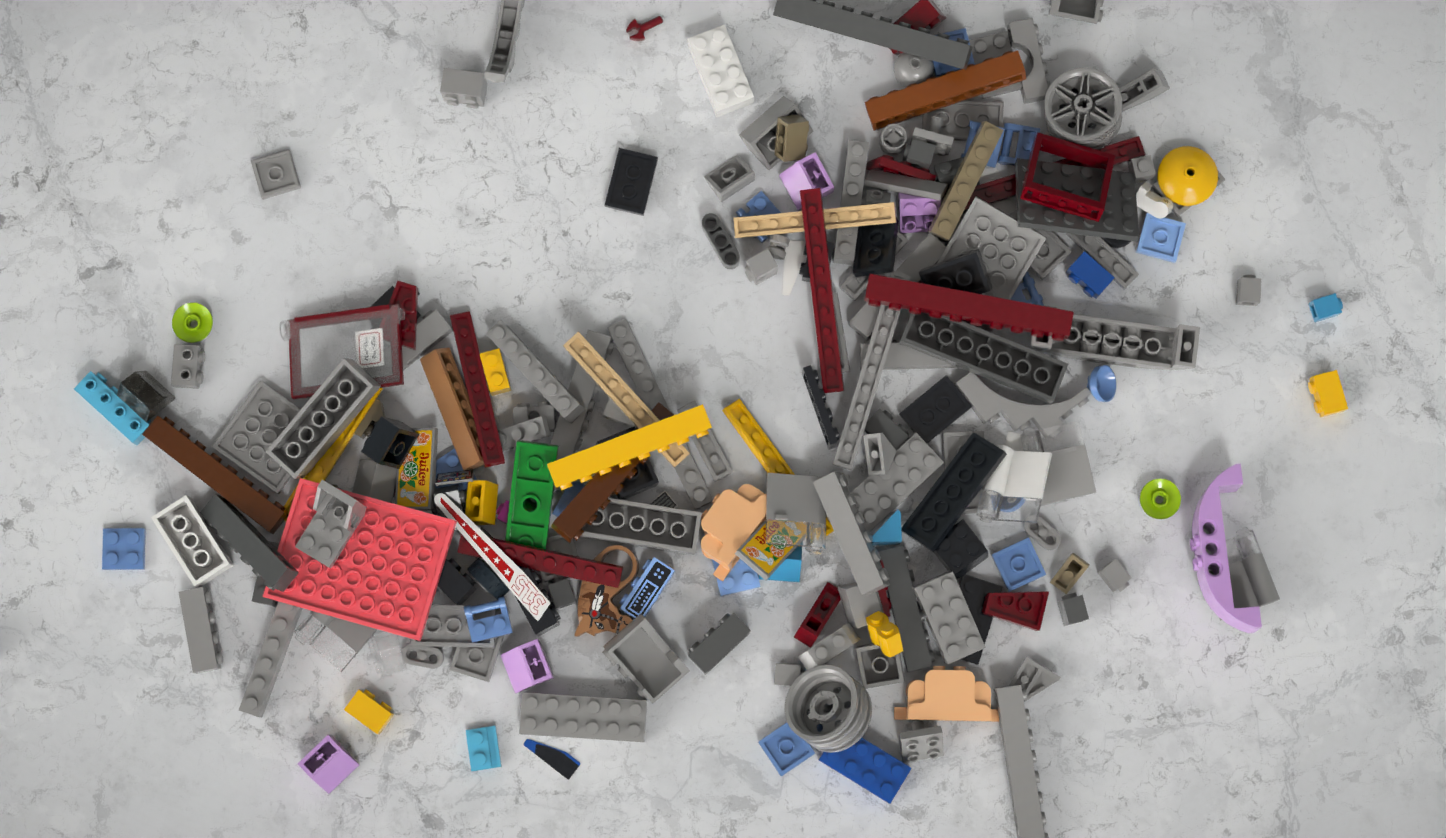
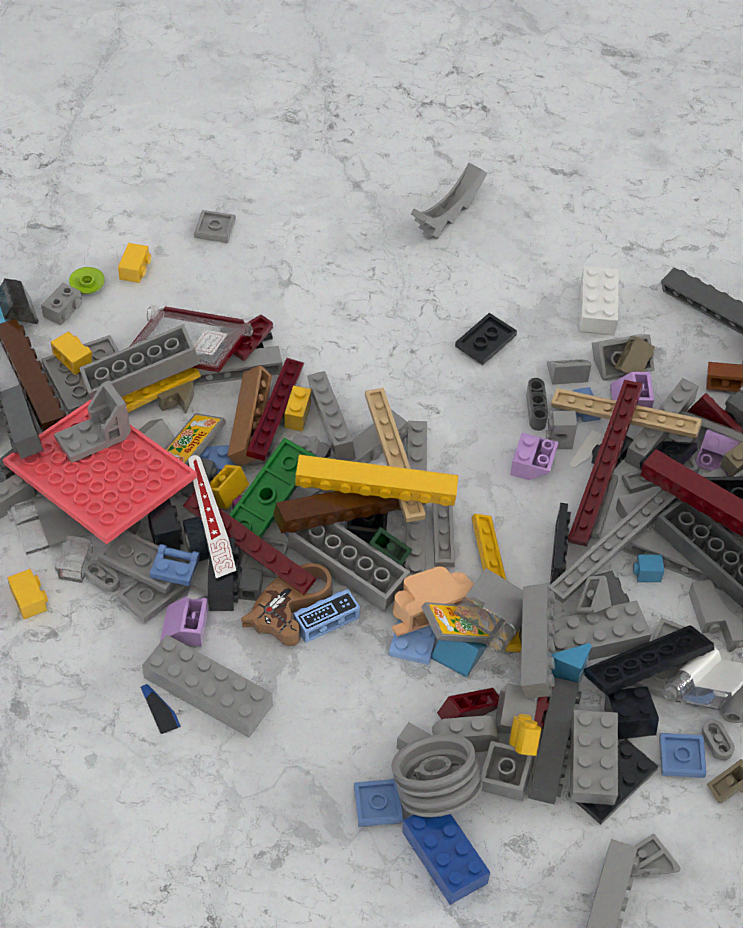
camera: 25 degrees right, 30 degrees down
(225, 273) = (134, 262): none -> yellow brick
(241, 429) = (71, 352): none -> yellow brick
(389, 442) = (181, 409): black brick -> none
(454, 477) = (215, 456): piece -> none
(463, 88) = (391, 227): light grey brick -> none
(483, 748) = (103, 671): medium azure plate -> none
(523, 633) = (195, 592): none -> white sticker
(643, 27) = (546, 255): dark red bar -> none
(645, 659) = (290, 655): light grey cylinder -> none
(670, 492) = (390, 546): none -> dark green slope
(718, 642) = (365, 681): dark grey brick -> none
(749, 311) = (533, 457): none -> lavender slope
(778, 245) = (584, 426): light grey wheel -> none
(893, 139) = (720, 391): light grey wheel -> none
(909, 383) = (649, 568): none -> dark azure brick
(921, 742) = (511, 858): light grey plate -> none
(935, 409) = (664, 599): black plate -> none
(948, 697) = (558, 833): light nougat brick -> none
(1017, 608) = (667, 791): dark red wing -> none
(1072, 609) = (719, 812): dark grey brick -> none

